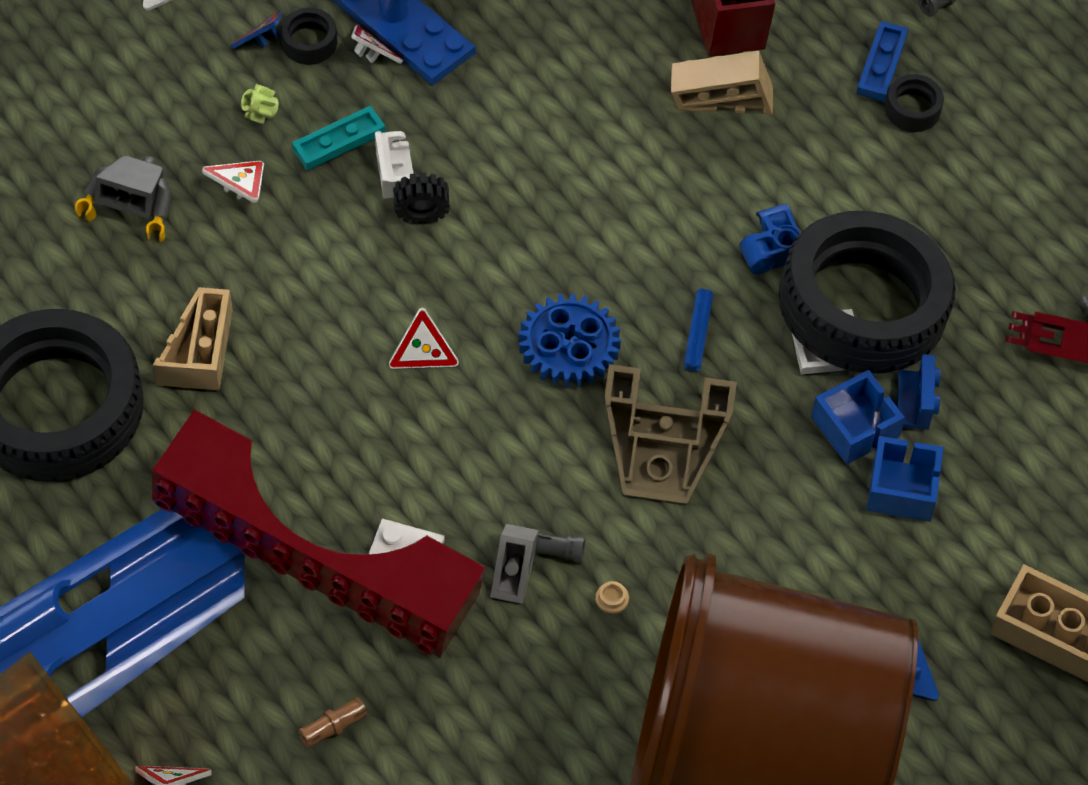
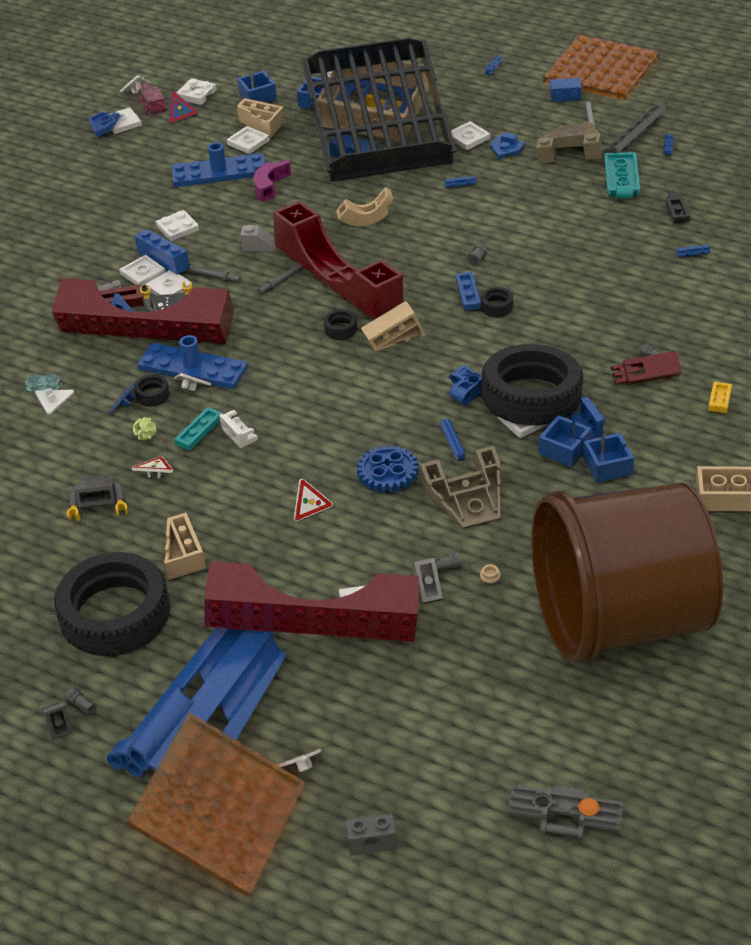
camera: 20 degrees left, 15 degrees down
(332, 722) = (375, 695): medium nougat pin -> none
(421, 198) = (270, 440): black tyre -> none
(652, 21) = (340, 316): none -> black tyre

